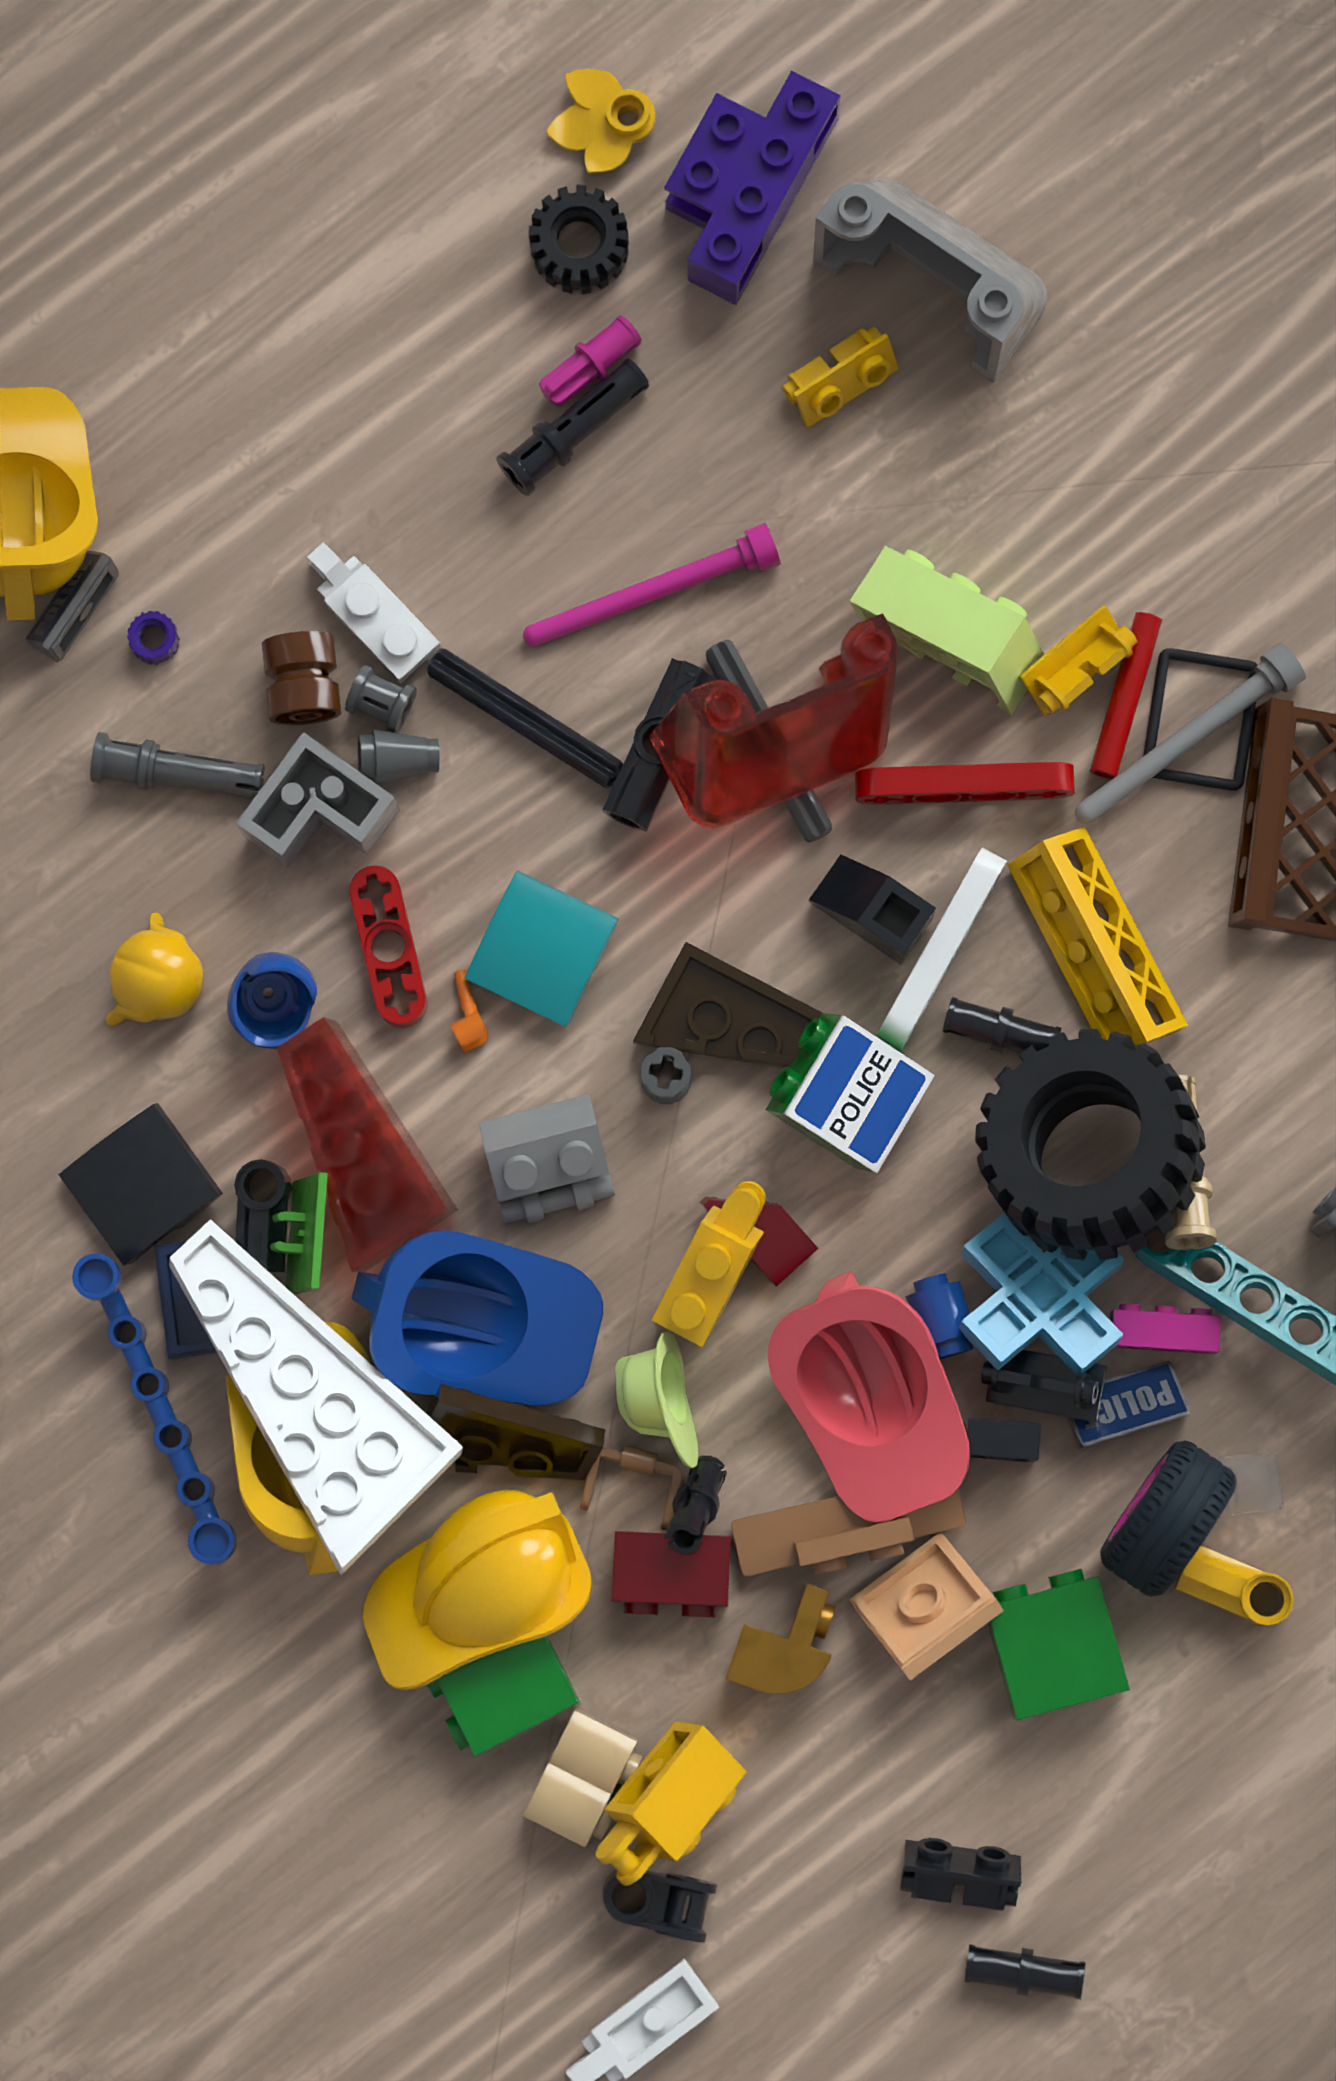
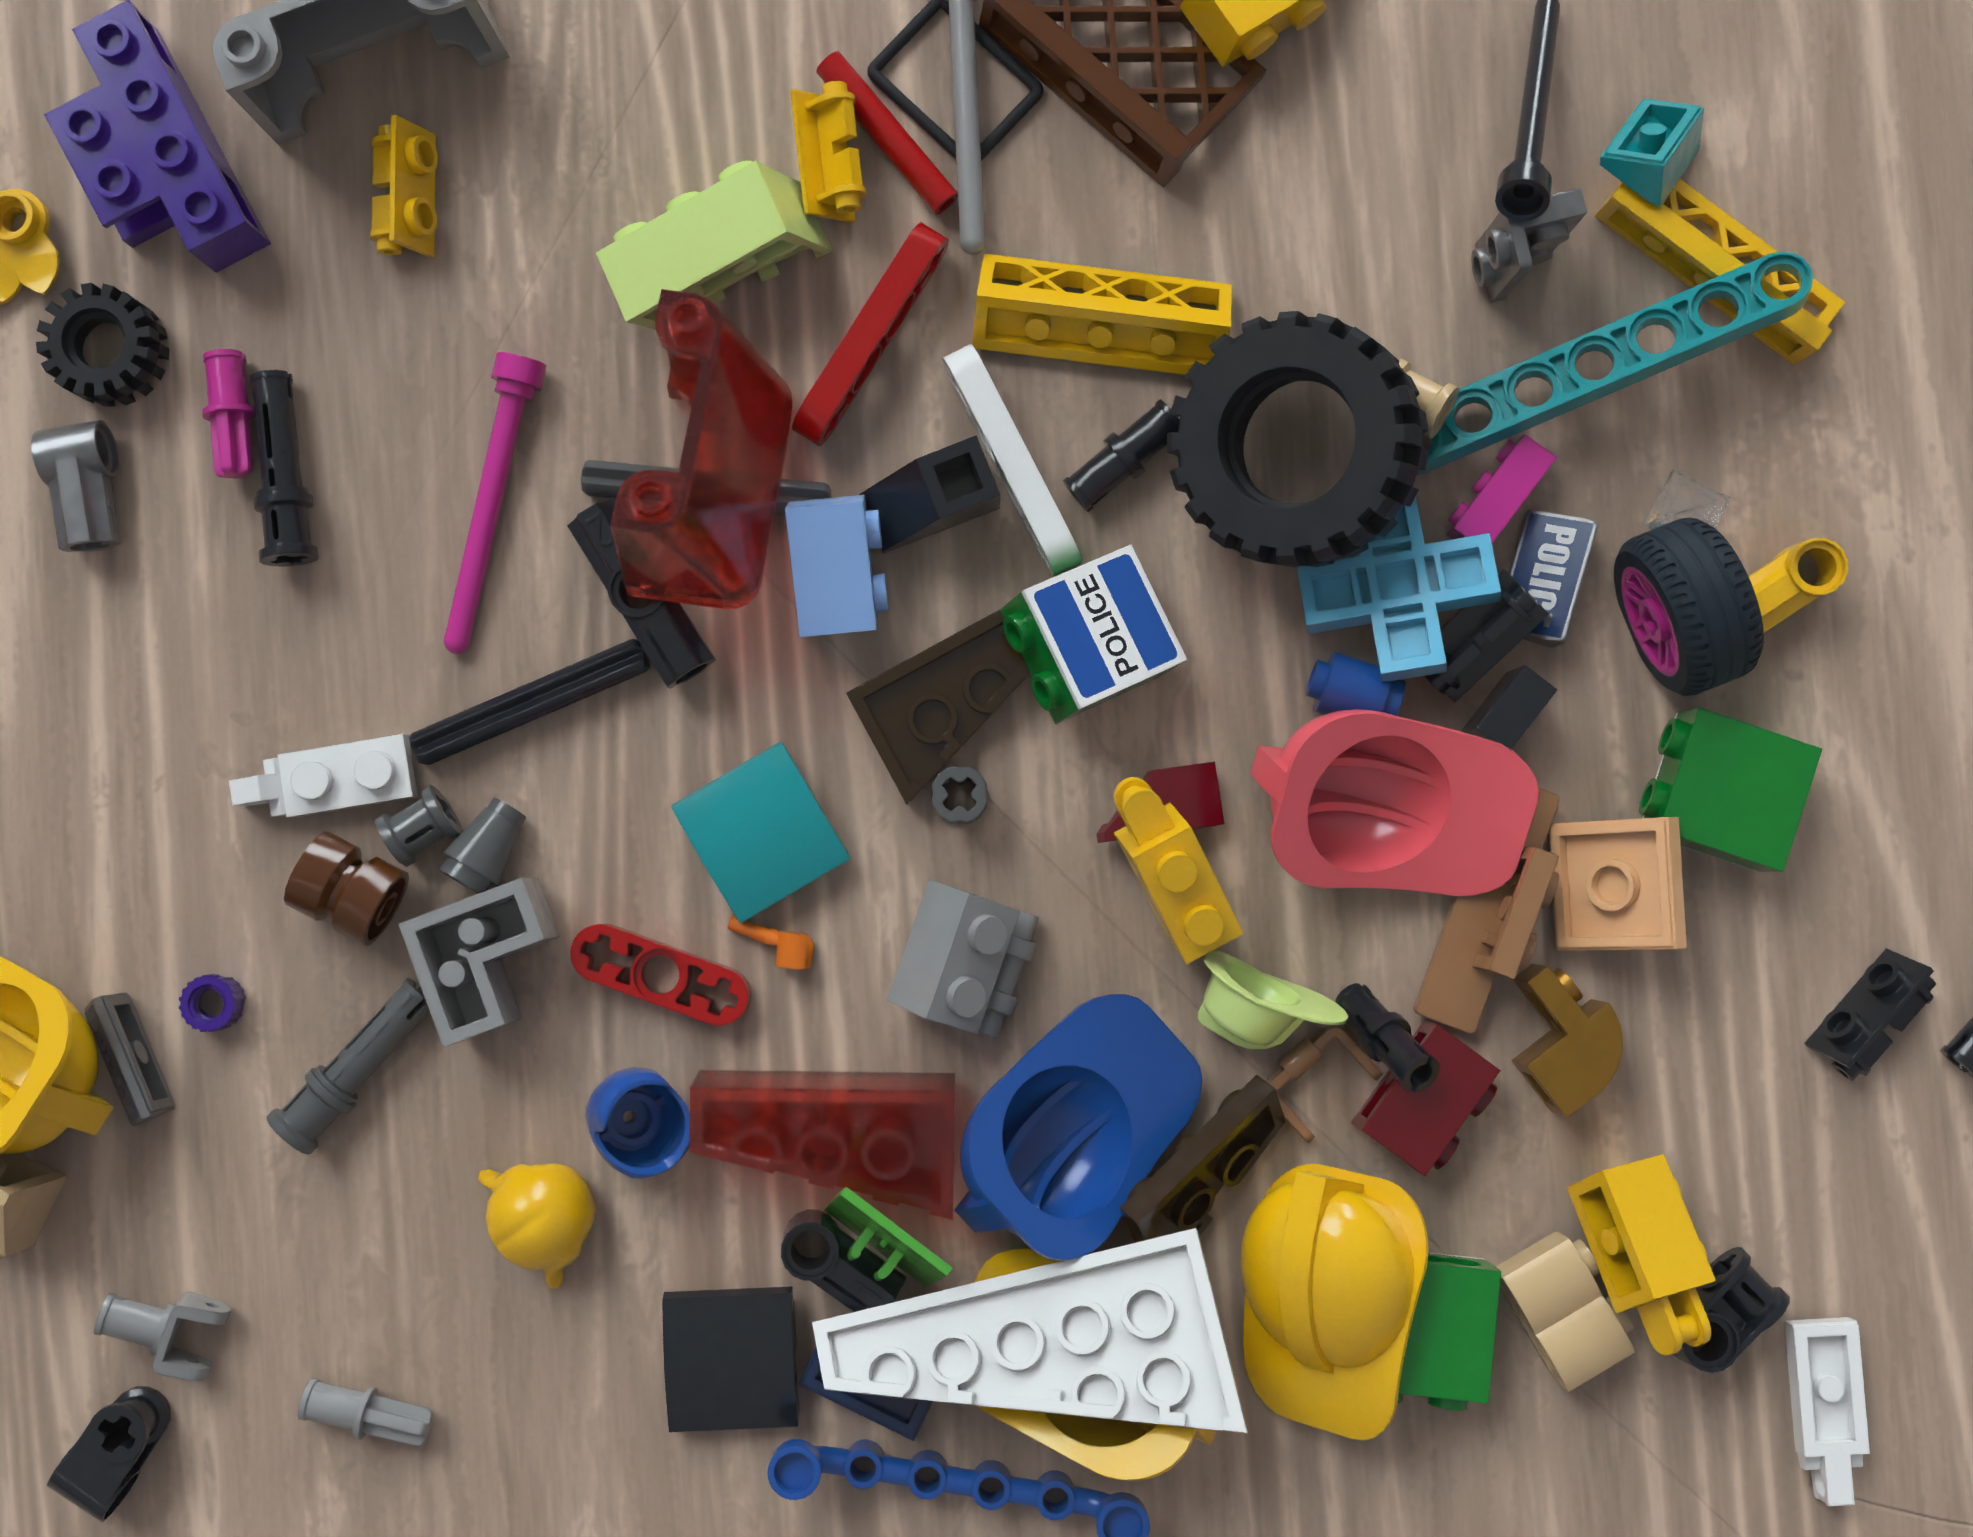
camera: 60 degrees left, 5 degrees up
(478, 281) = (78, 470): none -> flat silver piece
(774, 870) = (834, 565): none -> light blue brick

